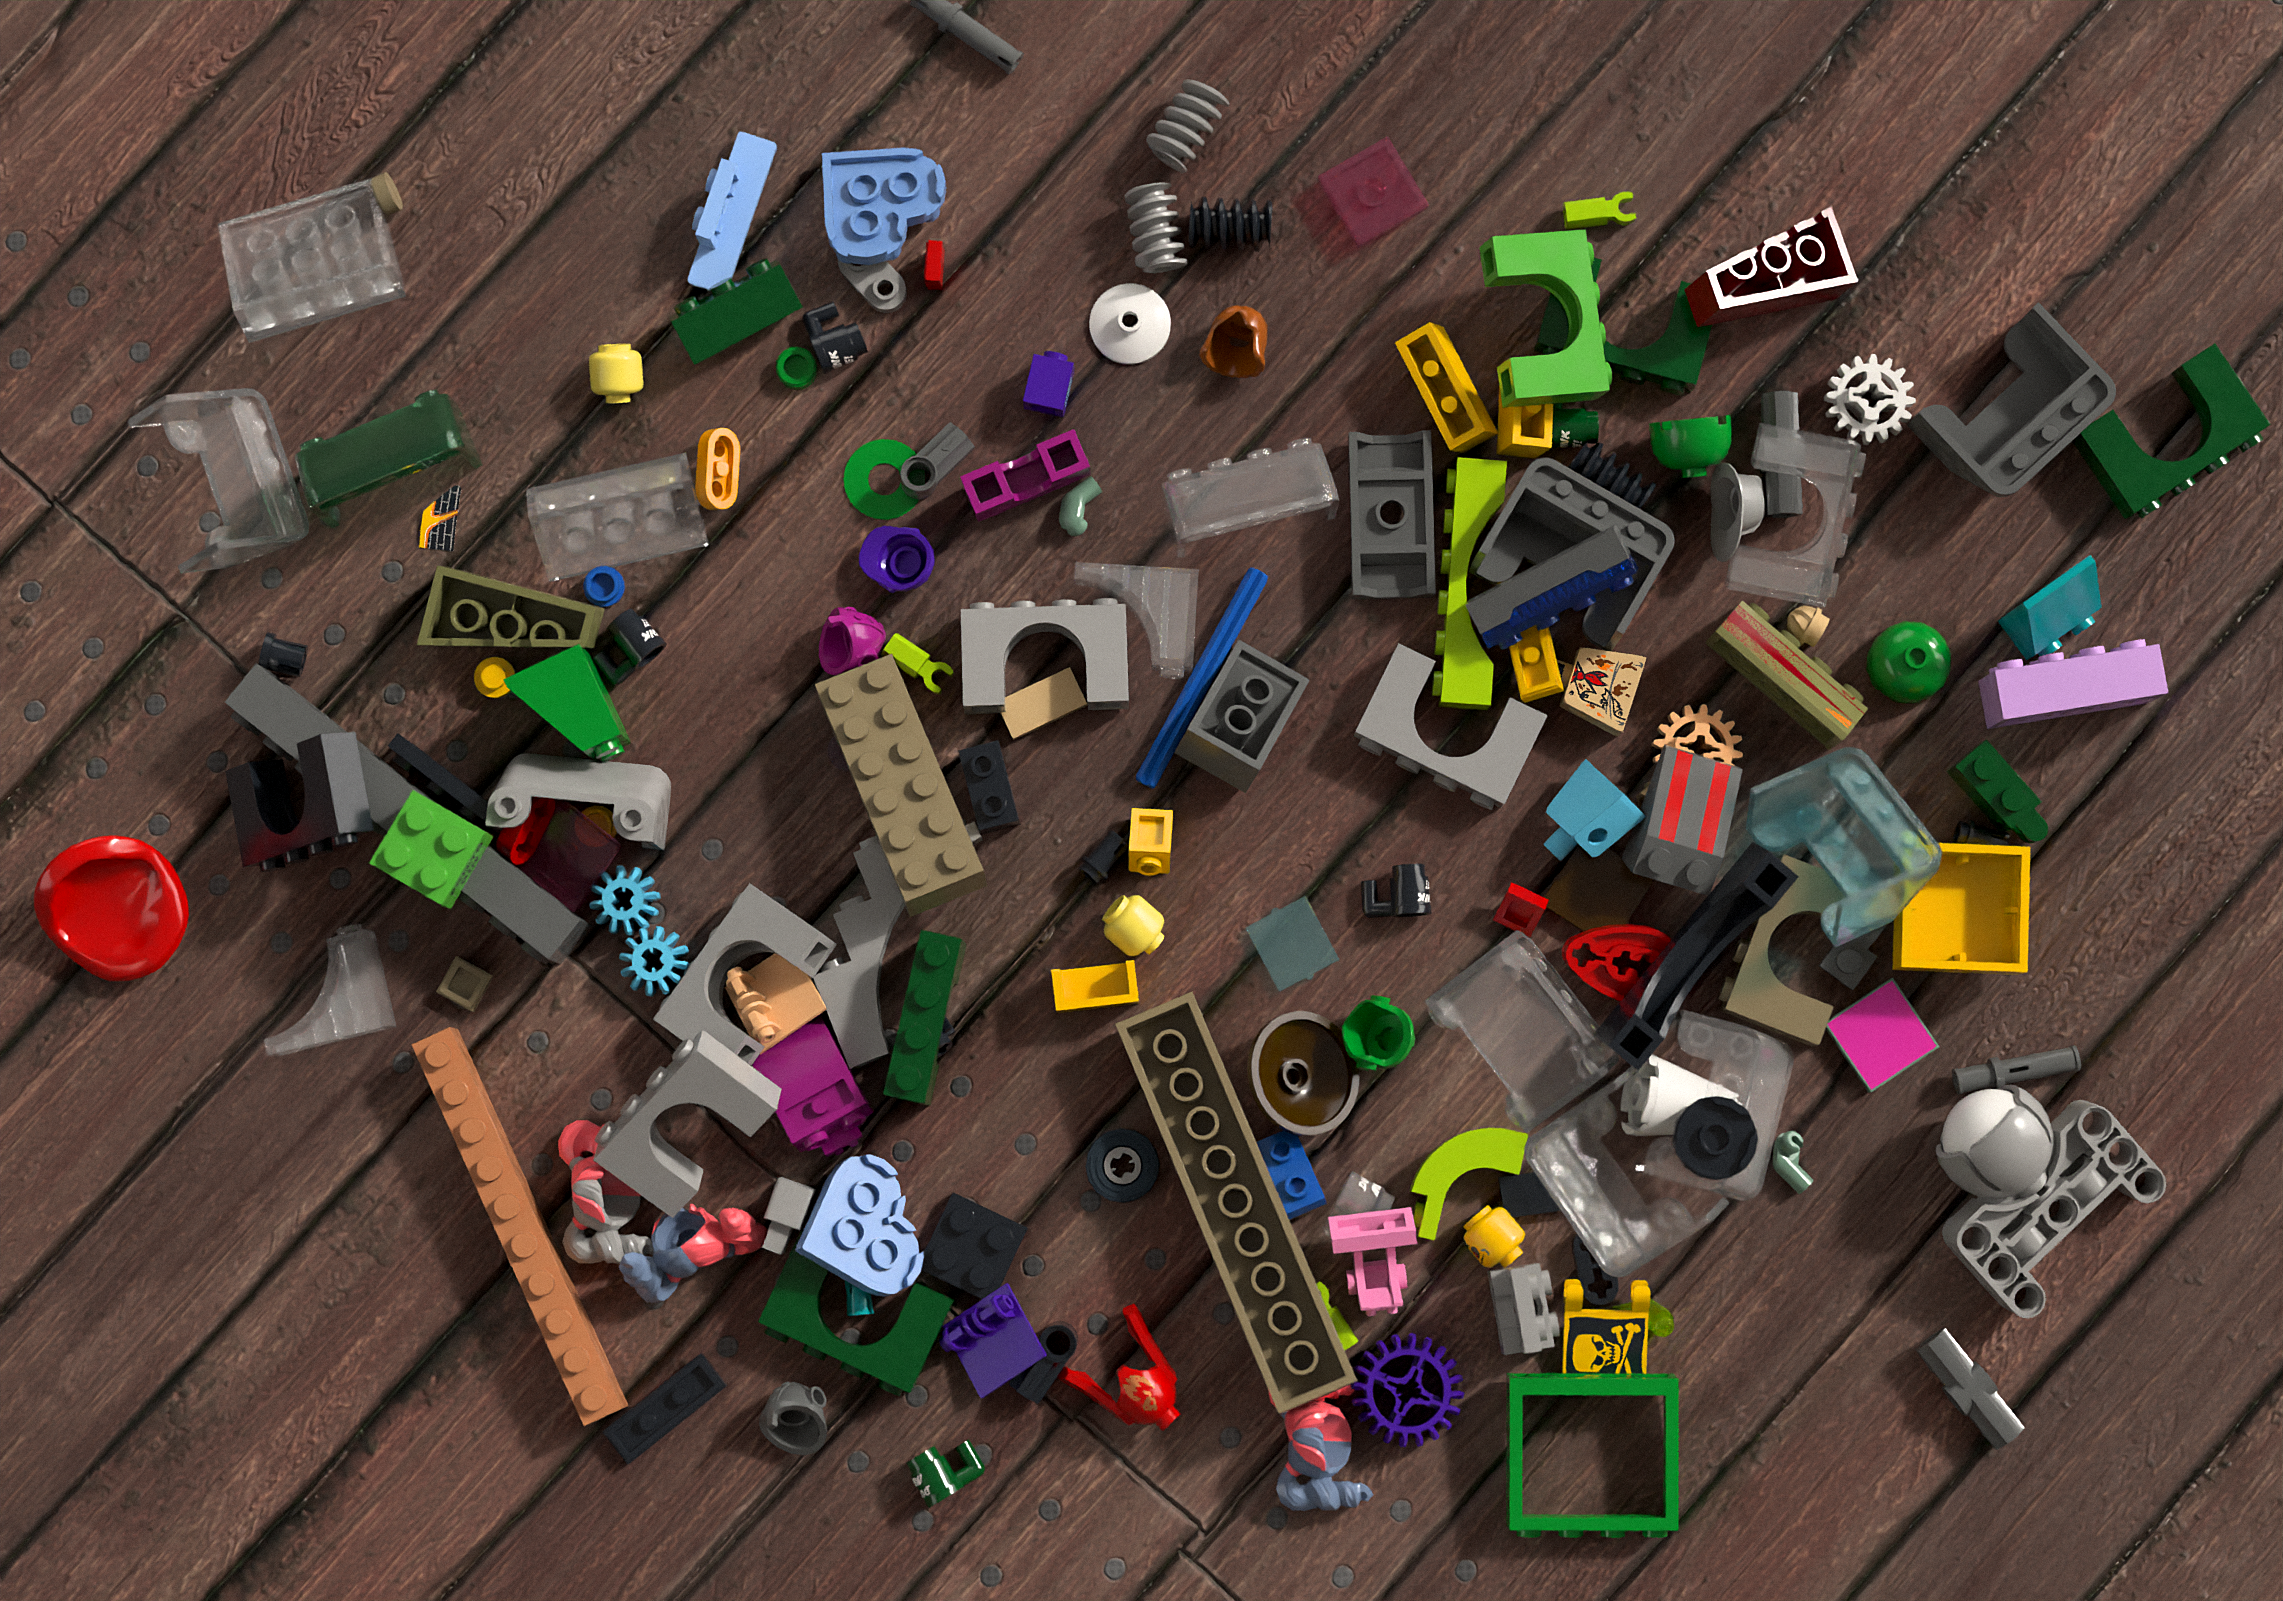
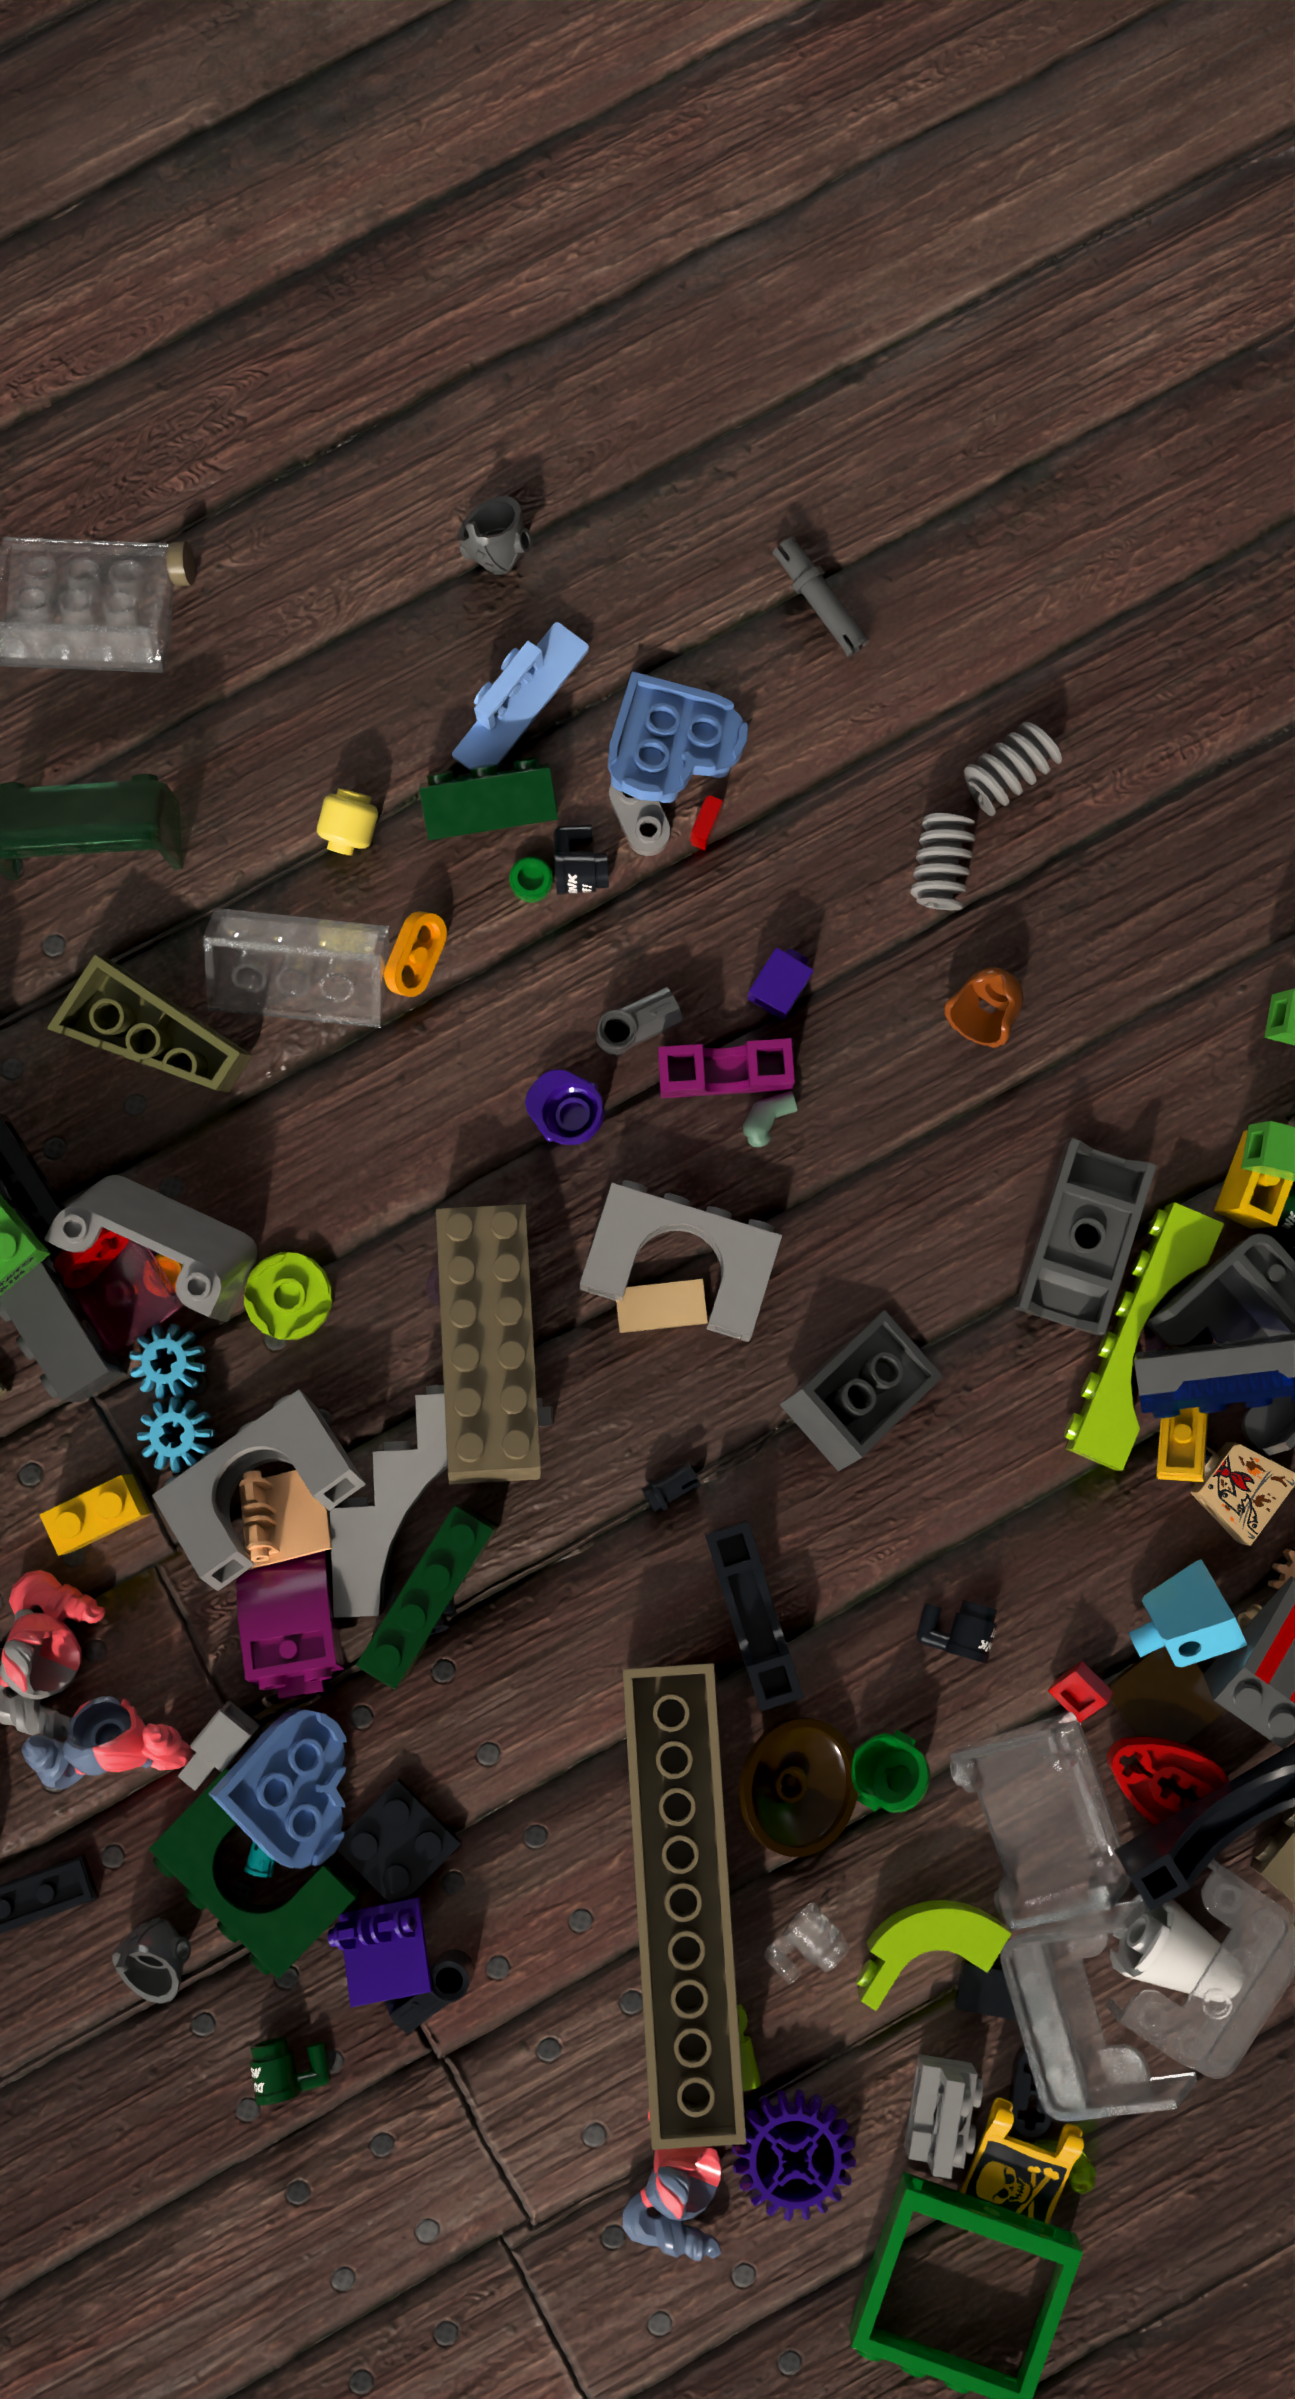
camera: 15 degrees right, 0 degrees up
(440, 521) = (120, 911): sticker -> none
(490, 676) = (117, 1087): yellow plate -> none
(574, 701) = (185, 1142): green slope -> none
(604, 586) = (260, 1033): blue plate -> none
(608, 1054) = (95, 1514): none -> yellow brick
(635, 640) = (272, 1102): black piece -> none
(658, 72) = (495, 535): none -> dark grey helmet
(699, 1074) = (171, 1577): light grey arch -> none
(710, 808) = (288, 1296): none -> lime tile
(849, 640) = (488, 1175): magenta helmet -> none
(857, 483) = (552, 1016): green piece -> none
(915, 661) = (547, 1218): lime bar -> none
(989, 787) = (578, 1374): black brick -> none
(1095, 987) = (616, 1619): yellow panel -> none
(1113, 1145) = (583, 1836): black bush -> none
(1133, 925) = (676, 1568): light yellow head -> none
(1134, 343) = (877, 970): white dish -> none
(1145, 1395) = (520, 2068): red piece -> none
(1150, 841) = (724, 1487): yellow bracket -> none
(1162, 603) = (819, 1247): clear arch -> none
(1201, 678) = (833, 1336): blue axle -> none
(1212, 940) = (753, 1615): none -> black arch
(1230, 224) = (1022, 883): black piece -> none
(1248, 492) = (948, 1166): clear windscreen -> none
(1291, 1173) = (750, 1885): blue plate -> none
(1292, 943) = (832, 1642): clear light blue piece -> none
(1373, 192) = (1176, 900): clear pink plate -> none
(1379, 1281) = (803, 2028): bright pink tile -> none
(1391, 728) = (1093, 1537): light grey arch -> none
(1446, 387) = (1186, 1126): yellow brick -> none
(1494, 1237) = (938, 2025): yellow head -> none
(1715, 1138) = (1209, 2015): black tile -> none
(1786, 1160) = (1267, 2049): sand green arm -> none

